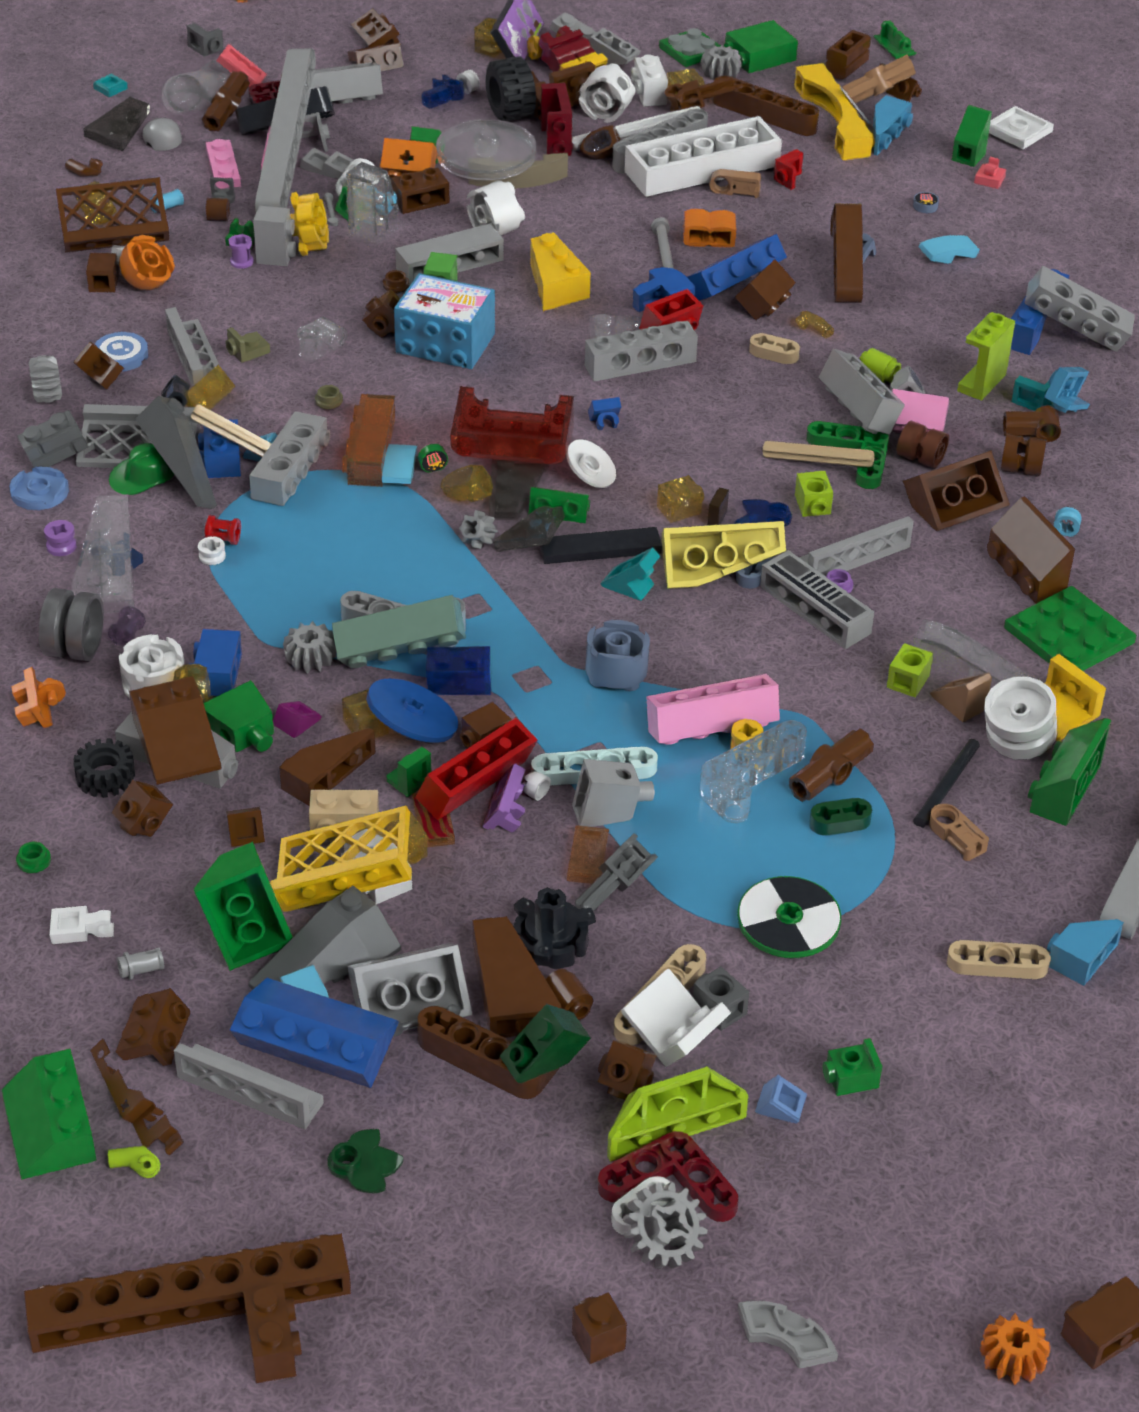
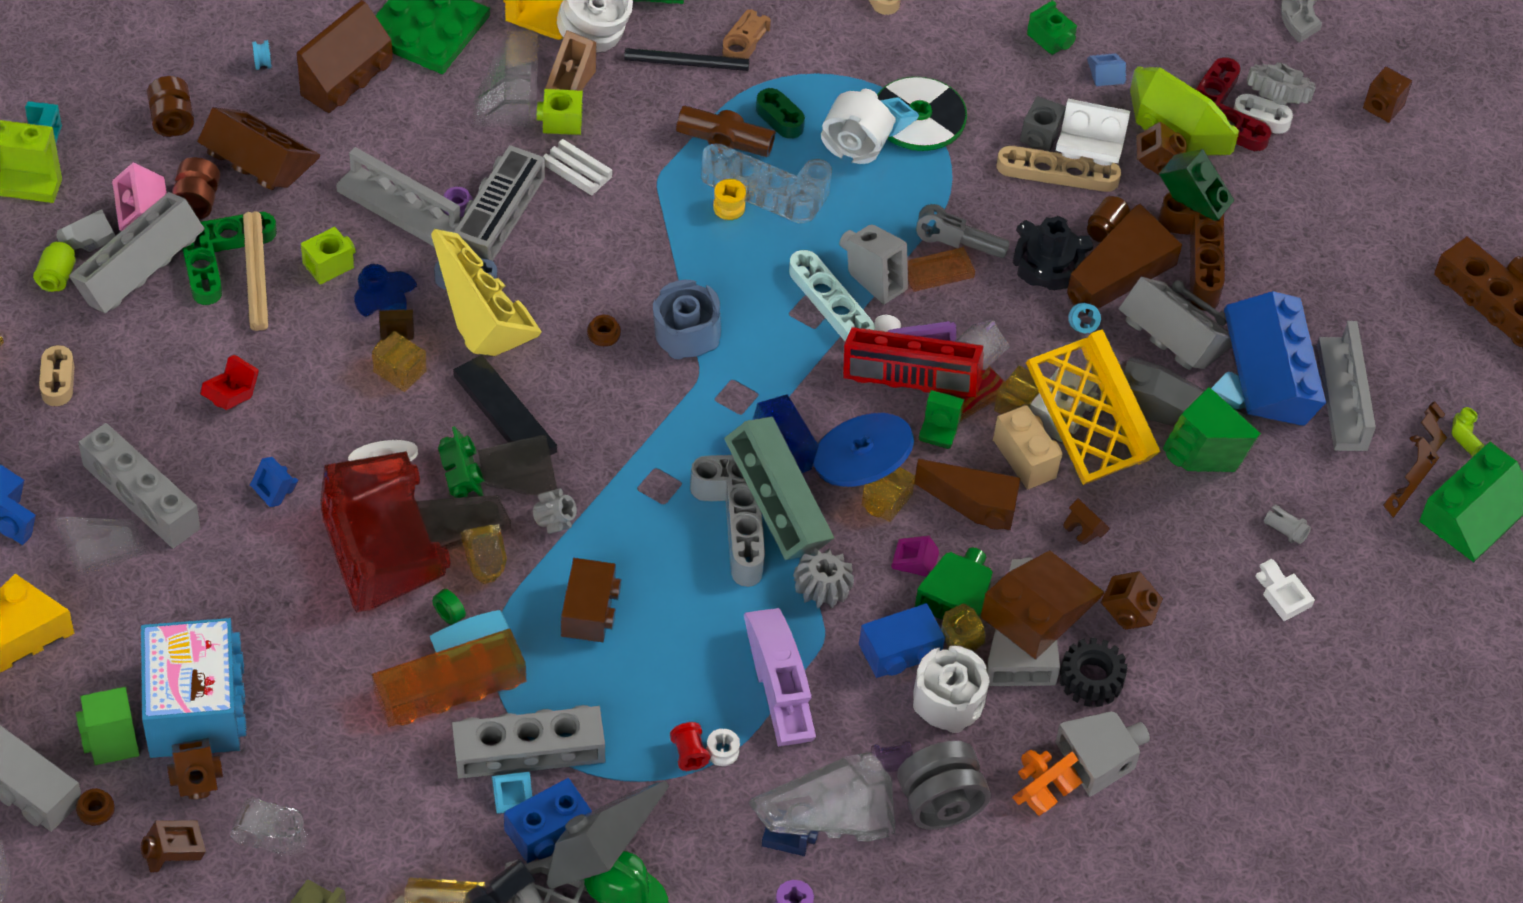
camera: 120 degrees left, 10 degrees up
(33, 857) = (1238, 664): green plate -> none
(35, 738) = (1103, 748): none -> light grey torso
(154, 1027) = (1344, 482): reddish brown bracket -> none
(230, 430) = (547, 789): tan axle -> none
(247, 584) = (782, 674): none -> lavender slope
(328, 397) = (378, 758): olive plate -> none
(340, 300) = (172, 842): none -> reddish brown bracket
(368, 1161) = (1353, 291): dark green plate -> none
(381, 515) = (589, 600): none -> reddish brown brick
(459, 922) = (1075, 322): none -> medium azure bush
(470, 826) = (990, 337): none -> clear brick
(482, 723) = (844, 390): reddish brown brick -> none
(632, 576) = (549, 356): teal slope -> none
(647, 619) = (607, 324): none -> reddish brown plate
(671, 309) = (61, 473): red brick -> none
(708, 414) = (233, 385): none -> red bracket
(712, 708) = (717, 223): bright pink brick -> none
(777, 837) = (857, 126): none -> white brick
(788, 884) = (902, 112): none -> medium azure slope
(841, 663) = (581, 164): none -> white tile
(1041, 423) = (101, 114): reddish brown piece -> none
(1064, 388) = (41, 85): dark azure bracket -> none

